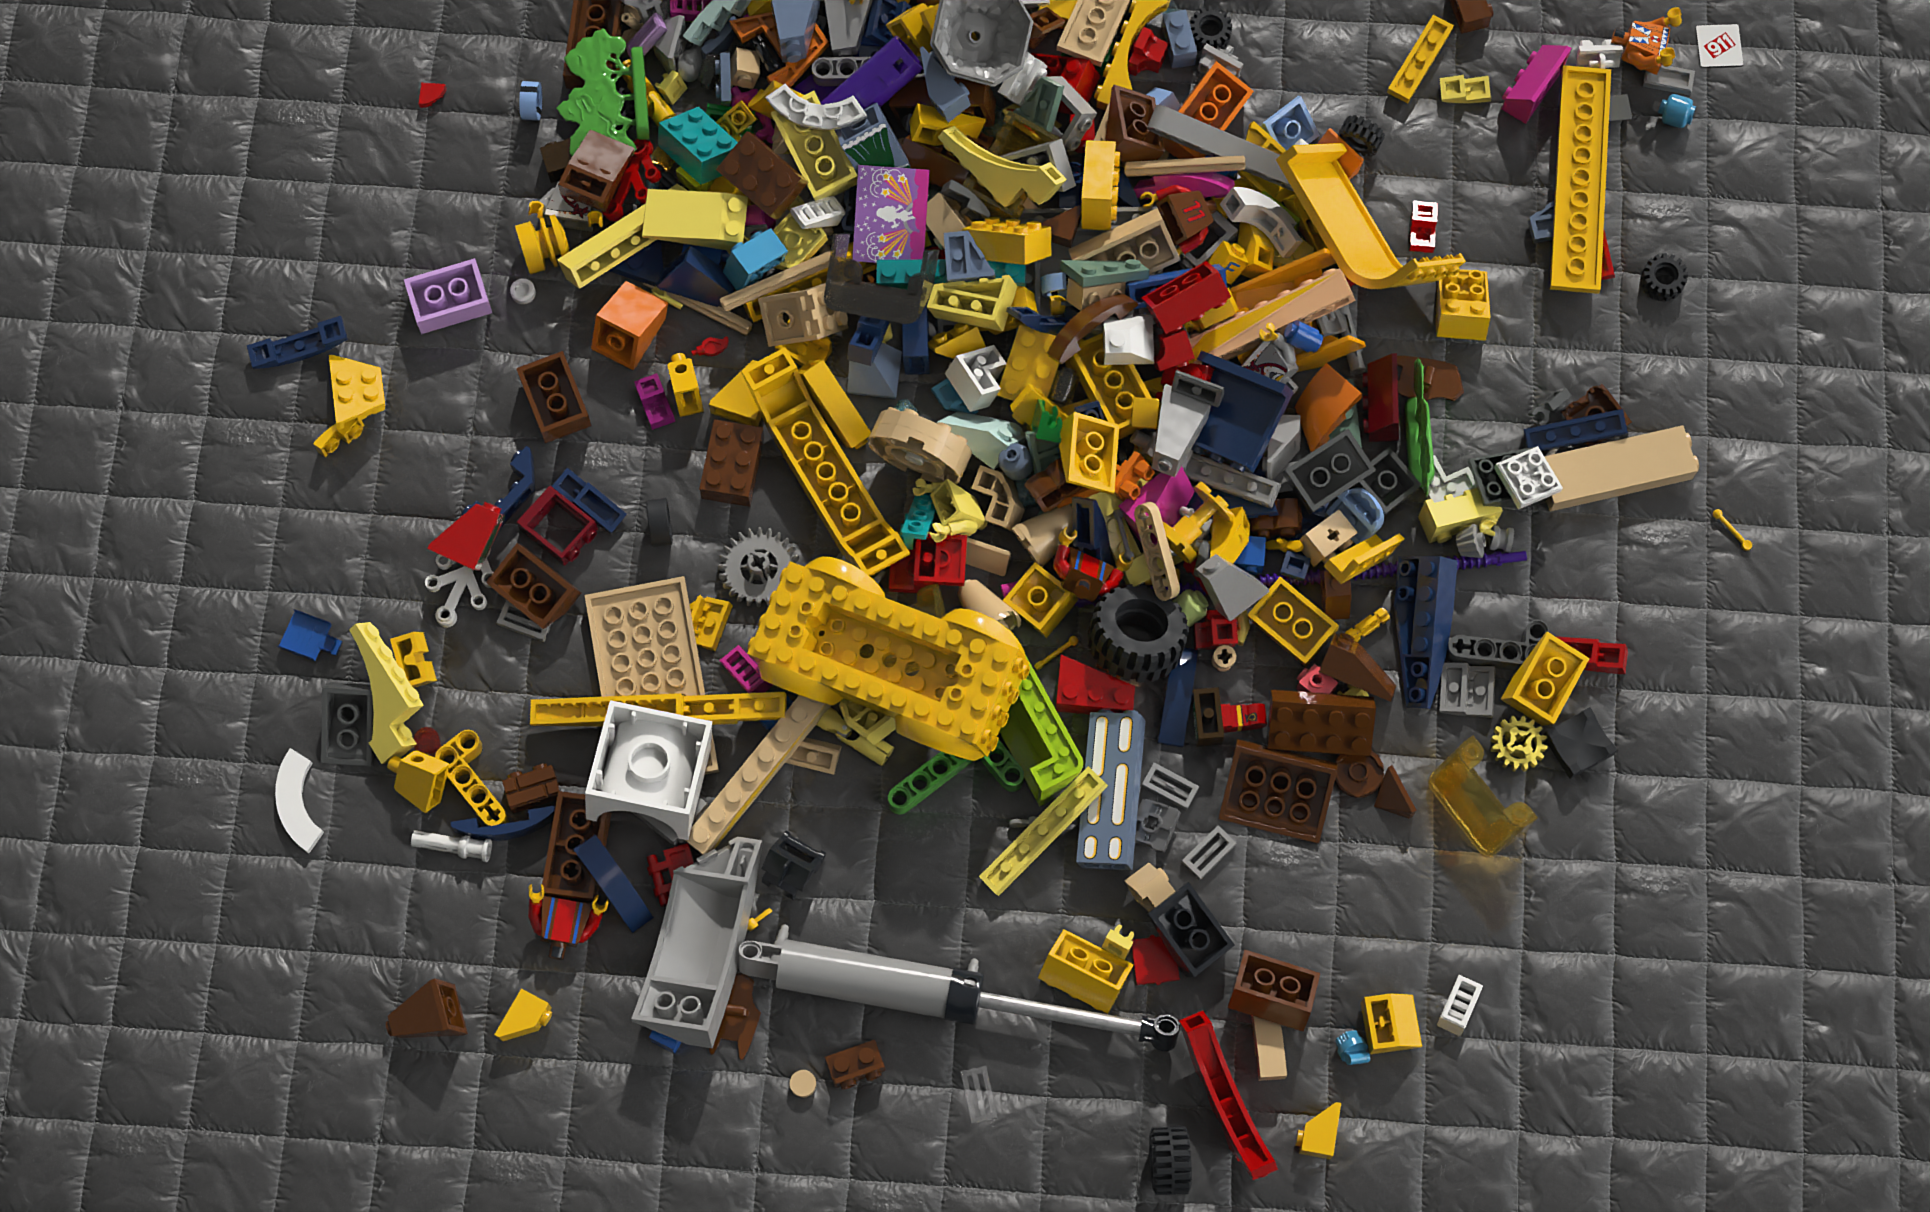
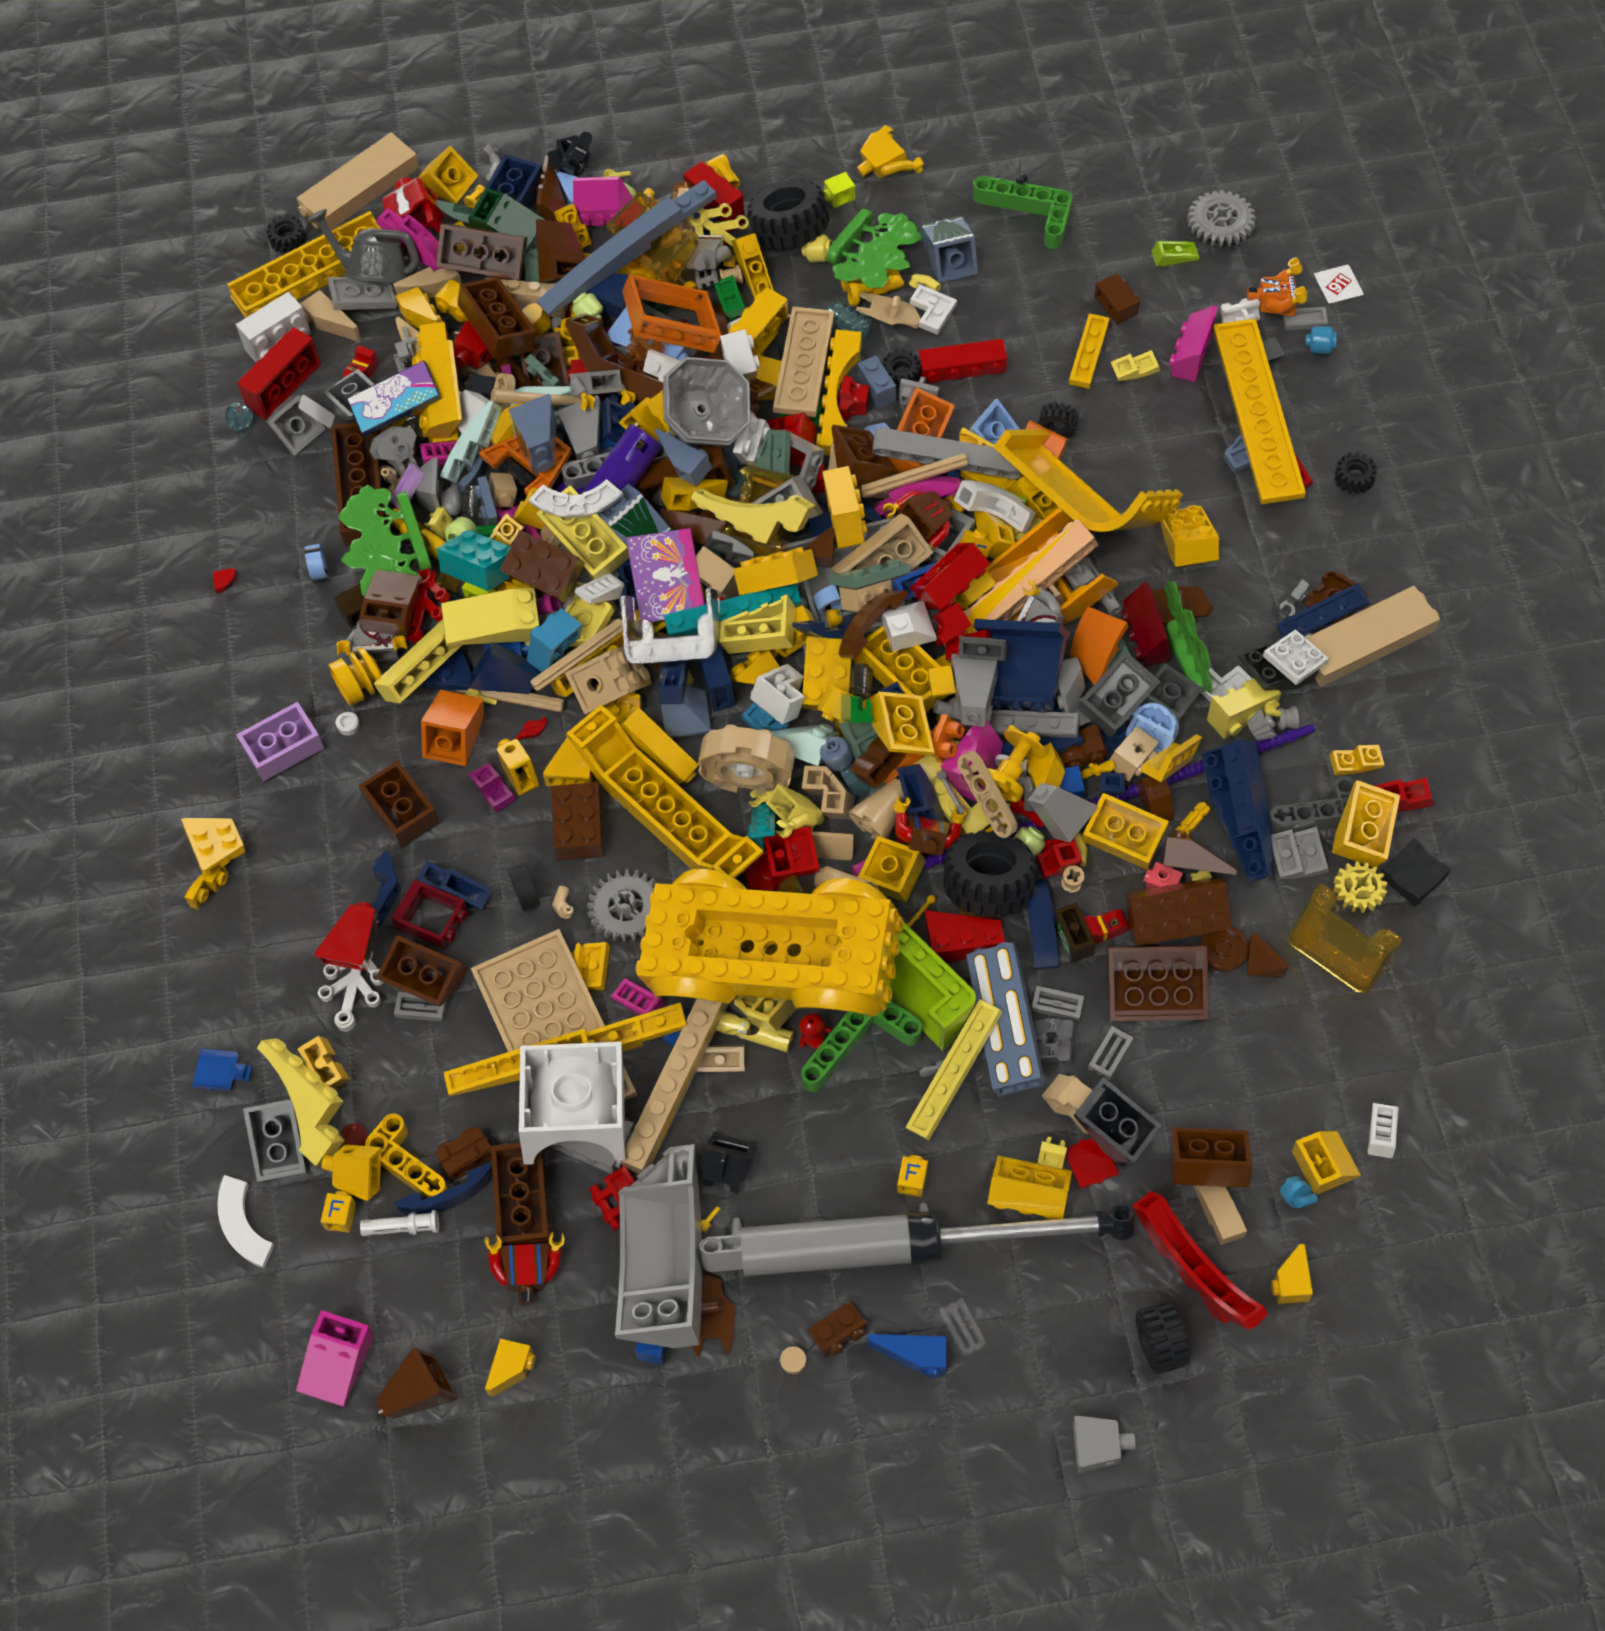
camera: 10 degrees left, 10 degrees down
(298, 346) = (151, 819): dark blue slope -> none
(355, 964) = (334, 1358): none -> dark pink slope
(394, 816) = (338, 1212): none -> yellow brick
(613, 883) = (565, 1217): dark blue slope -> none
(690, 99) = (458, 526): none -> yellowish green head
(693, 549) = (560, 904): none -> tan arm
(912, 754) = (812, 1030): none -> red animal
(928, 1110) = (919, 1353): none -> blue slope
(964, 258) = (742, 592): sand blue wing -> none
(971, 928) = (912, 1176): none -> yellow brick
(1279, 37) = (963, 360): none -> red brick
(1303, 336) = (1062, 585): blue brick -> none
(1423, 226) = (1133, 479): red slope -> none
(1560, 603) = (1359, 760): none -> yellow slope
(1745, 544) = (1501, 673): yellow hinge -> none

